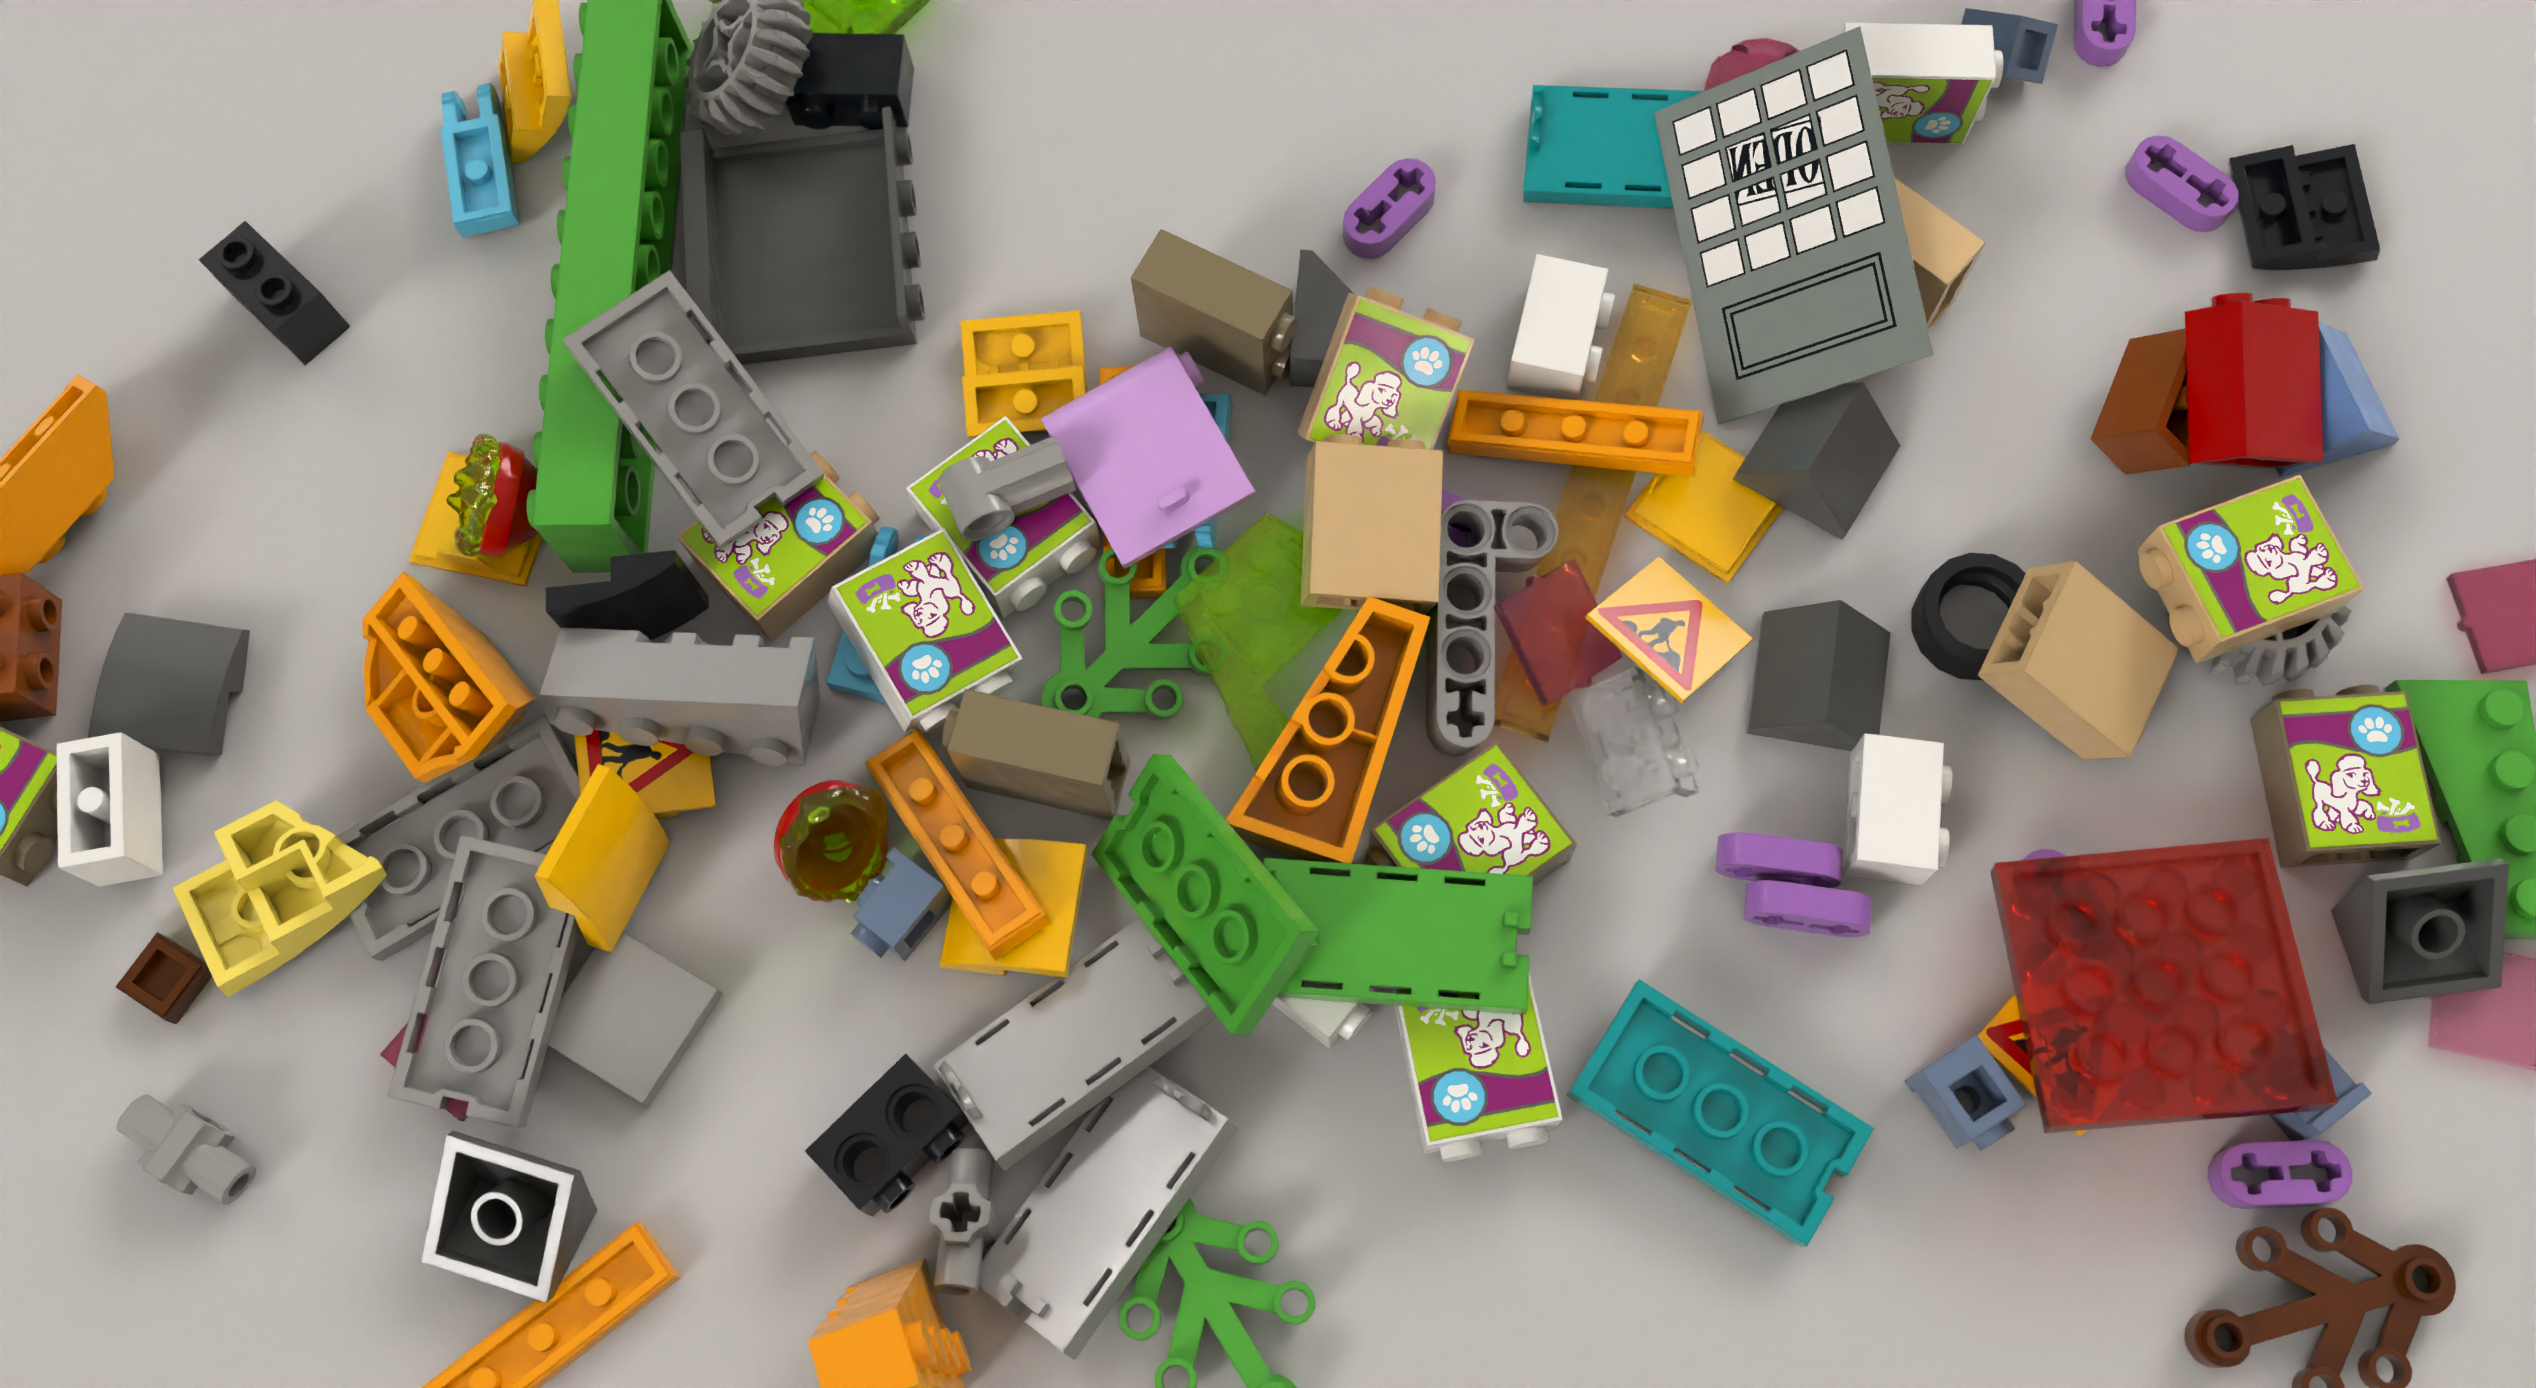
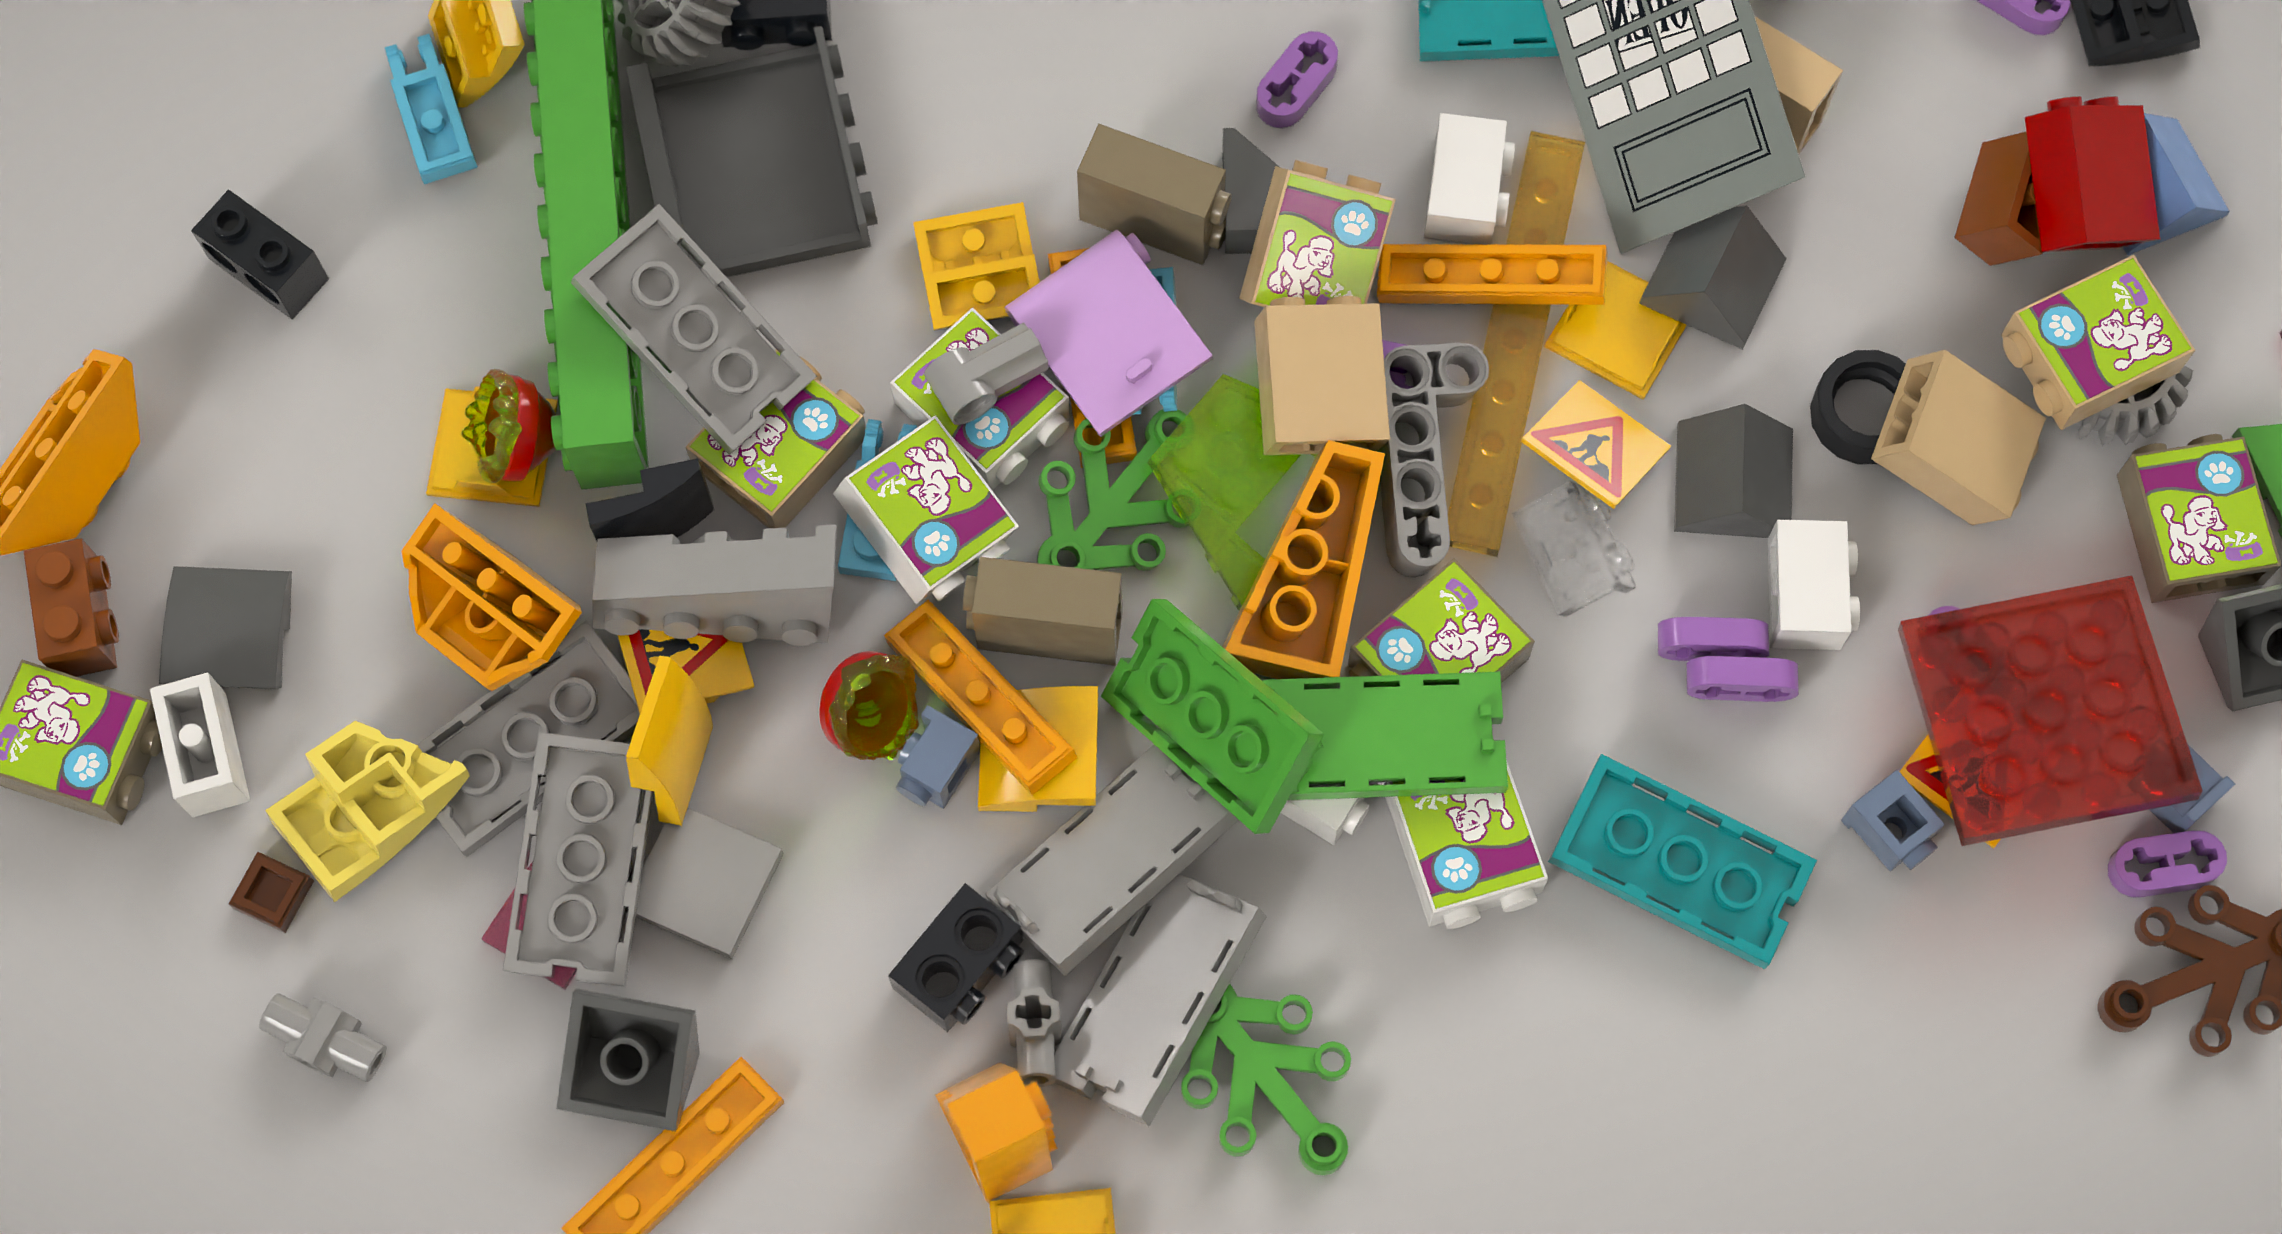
camera: 10 degrees left, 0 degrees up
(1552, 633) = (1492, 458): clear pink piece -> none

